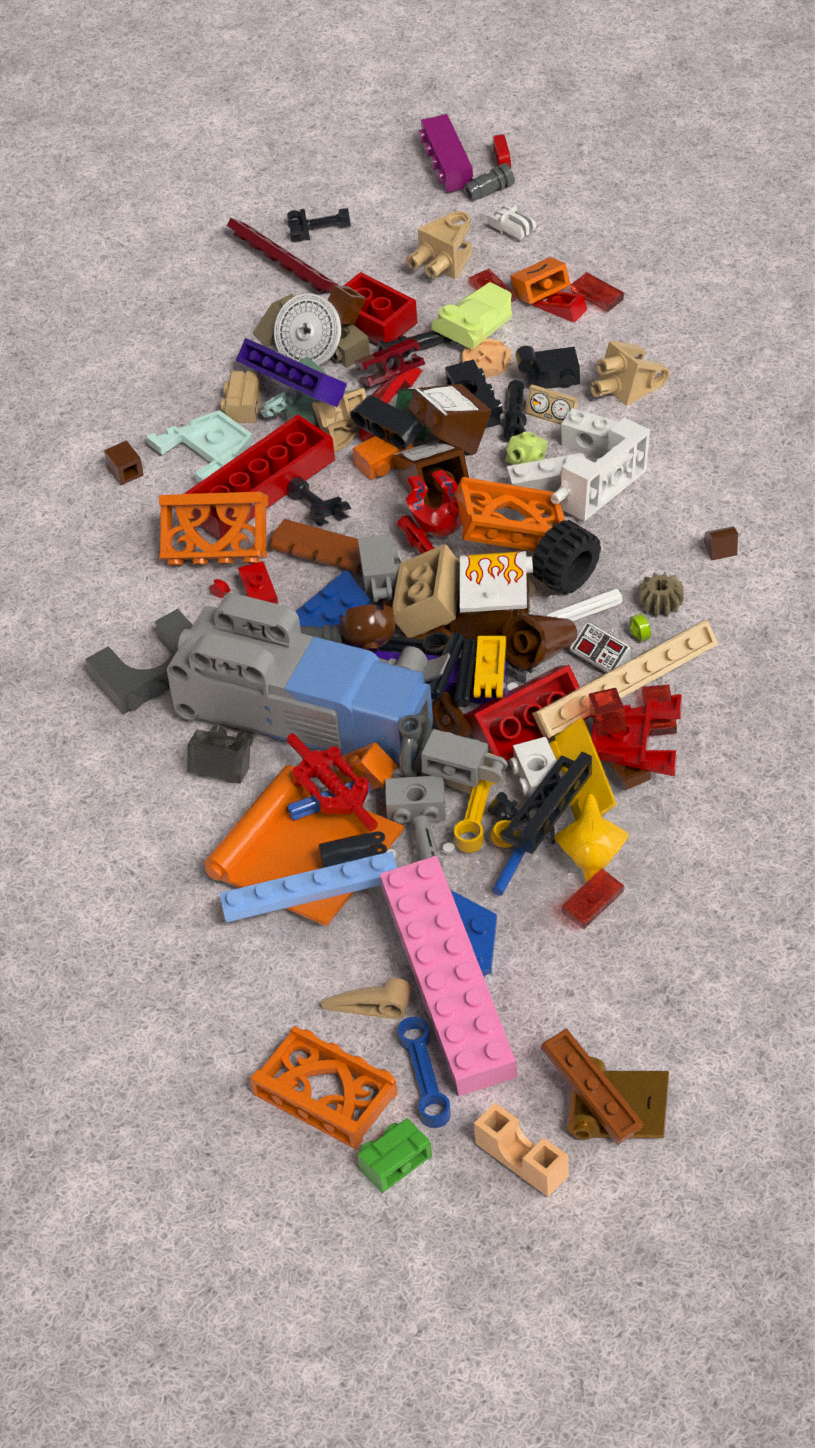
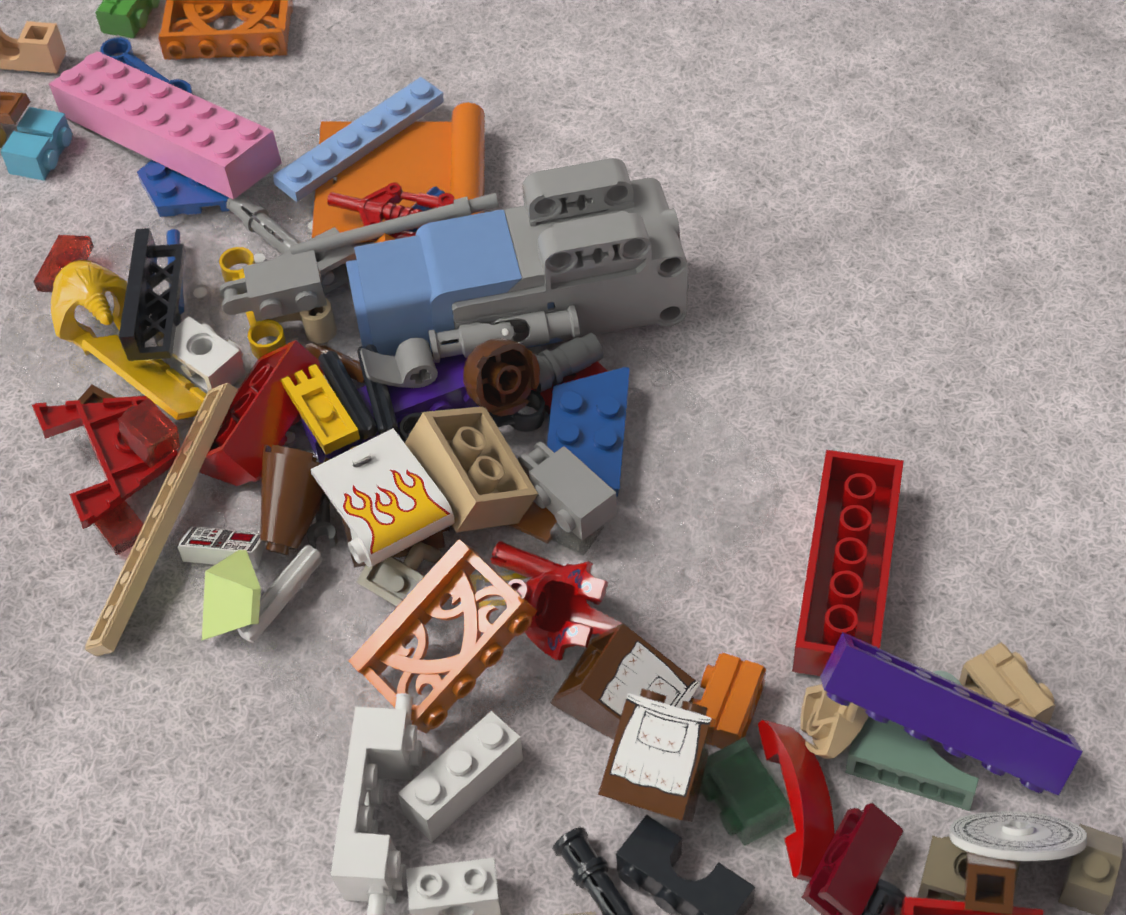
camera: 145 degrees right, 5 degrees up
(123, 462) = (1051, 506): reddish brown brick -> none
(130, 686) = (739, 247): dark grey arch -> none
(187, 503) = (821, 437): orange fence -> none
(211, 436) = (976, 609): light aqua wing -> none
(219, 588) = (760, 411): red piece -> none
(257, 582) = (711, 423): red plate -> none
(299, 489) = (719, 552): black bar -> none
(299, 745) = (460, 208): none -> light grey bar
(310, 540) = (690, 522): dark orange windscreen -> none
(351, 848) = (341, 175): black piece -> none
(376, 1001) = (243, 95): tan piece -> none
(386, 422) = (747, 705): black beam -> none
(422, 729) = (336, 257): dark grey piece -> none
(497, 831) = (199, 285): yellow plate -> none
(503, 807) = (211, 304): black plate -> none
(526, 448) = (515, 818): yellowish green brick -> none
(553, 1022) = (37, 152): none -> medium azure piece
(566, 557) = (327, 609): black tyre -> none
(611, 604) = (230, 595): none -> yellowish green slope
(640, 627) = (191, 609): lime tile -> none
(660, 594) = (194, 673): dark tan gear -> none
(721, 542) = (154, 802): reddish brown brick -> none

